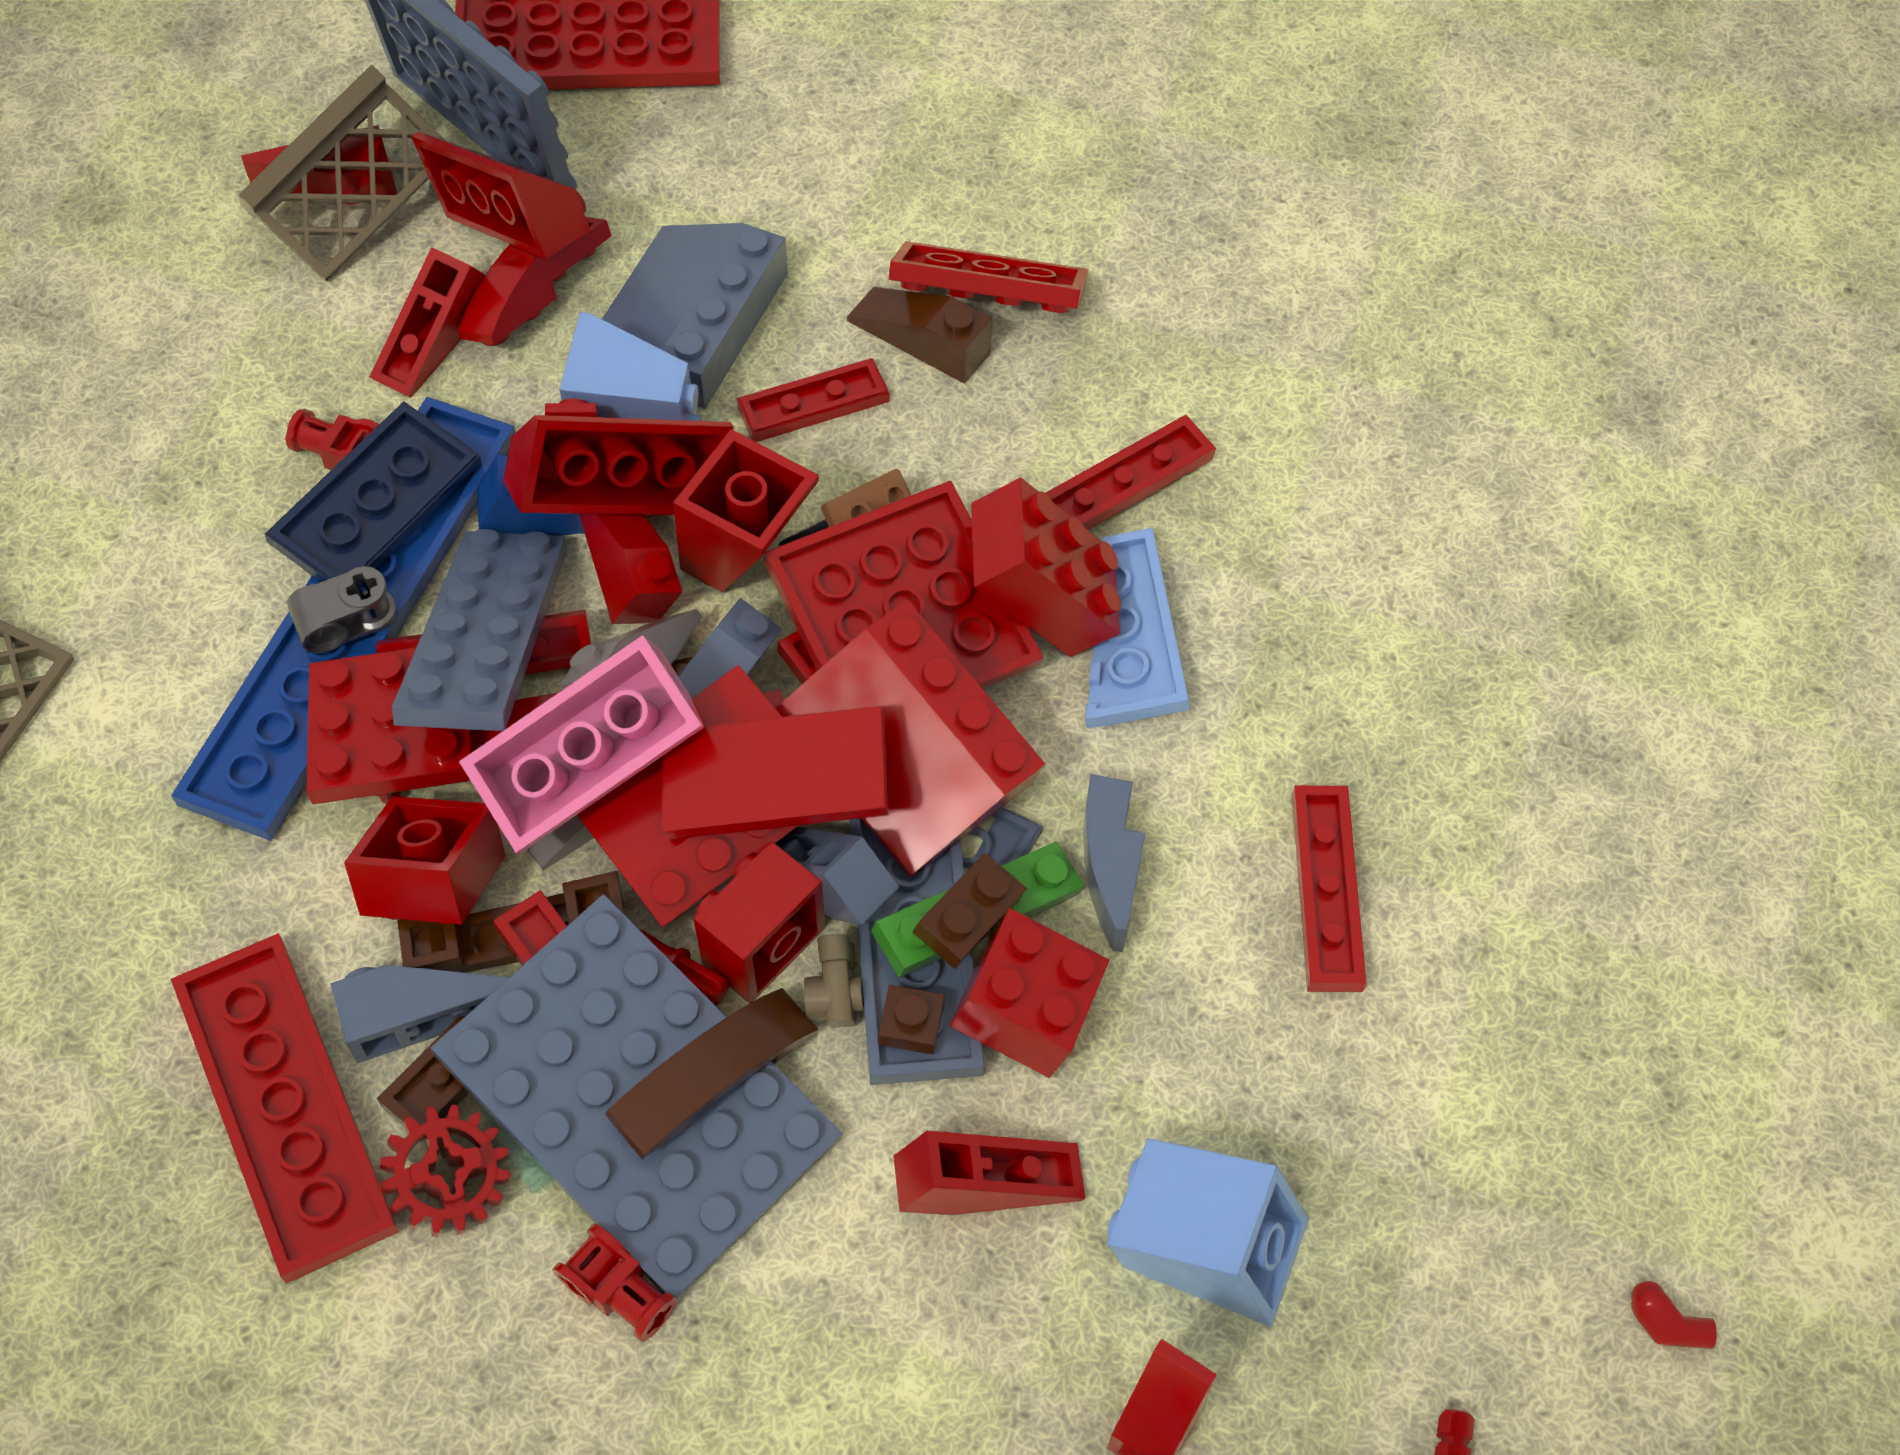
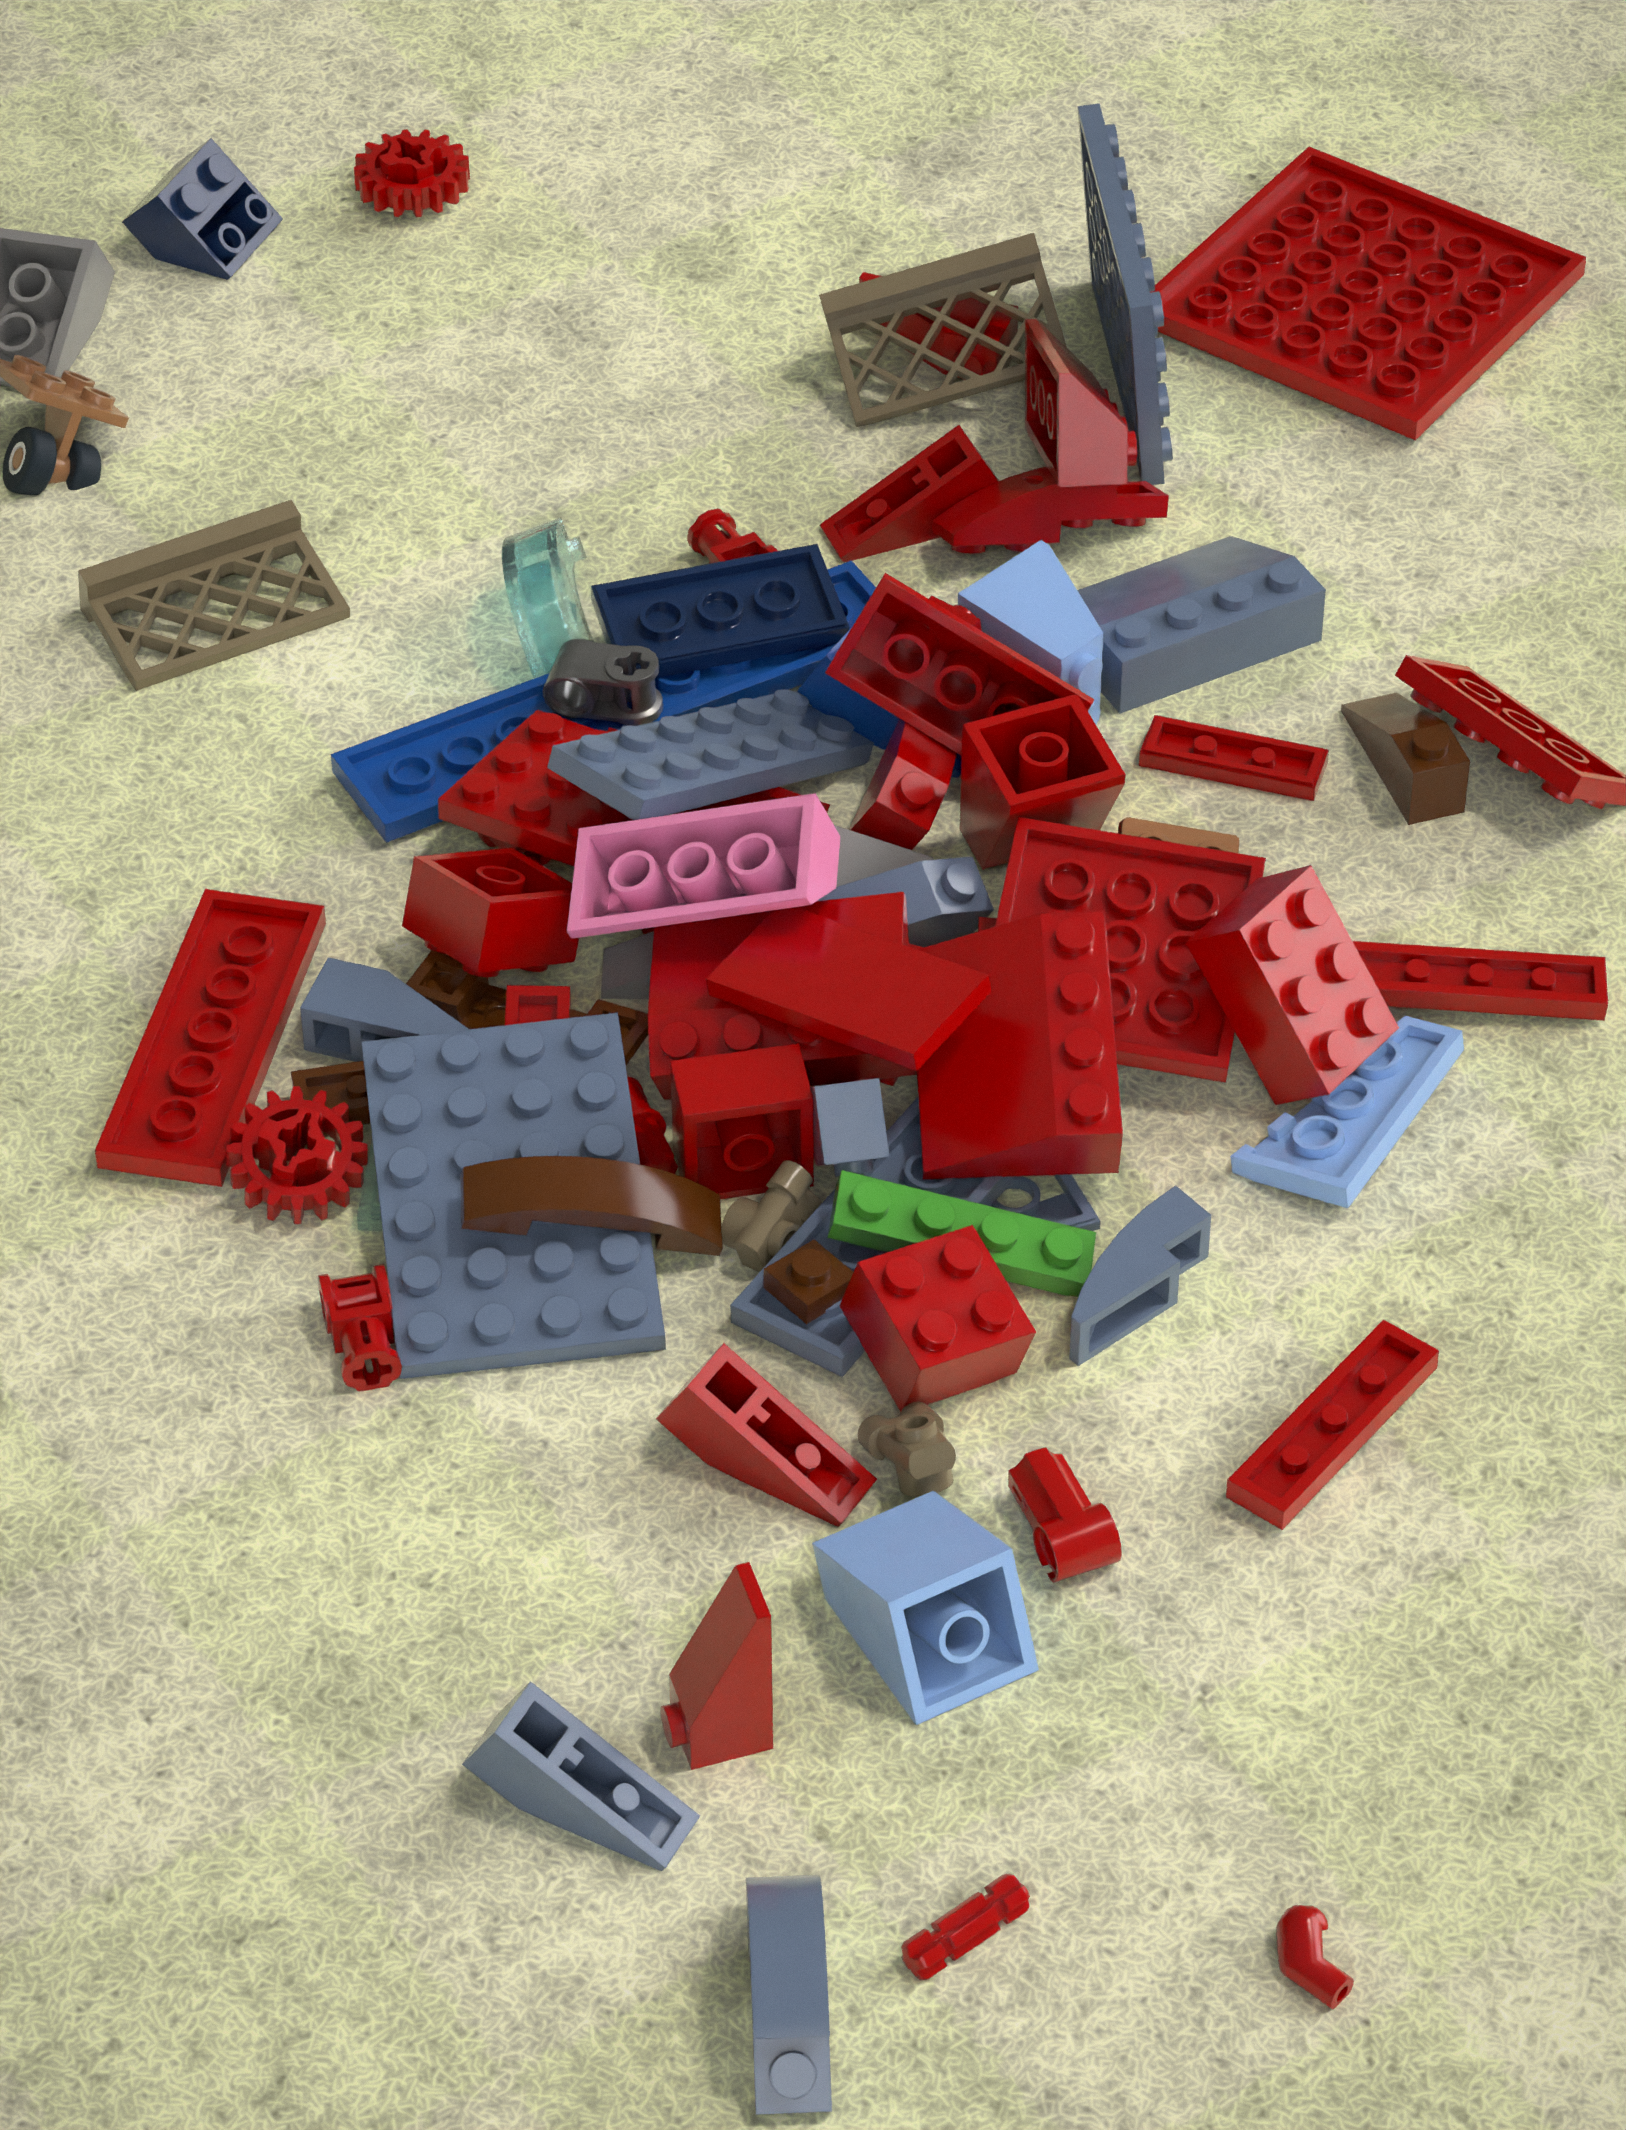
camera: 40 degrees right, 15 degrees down
(232, 560) = (544, 591): none -> clear light blue arch
(969, 910) = (929, 1207): reddish brown plate -> none
(1087, 1102) = (914, 1445): none -> dark tan plate
(1243, 1095) = (1065, 1525): none -> red piece

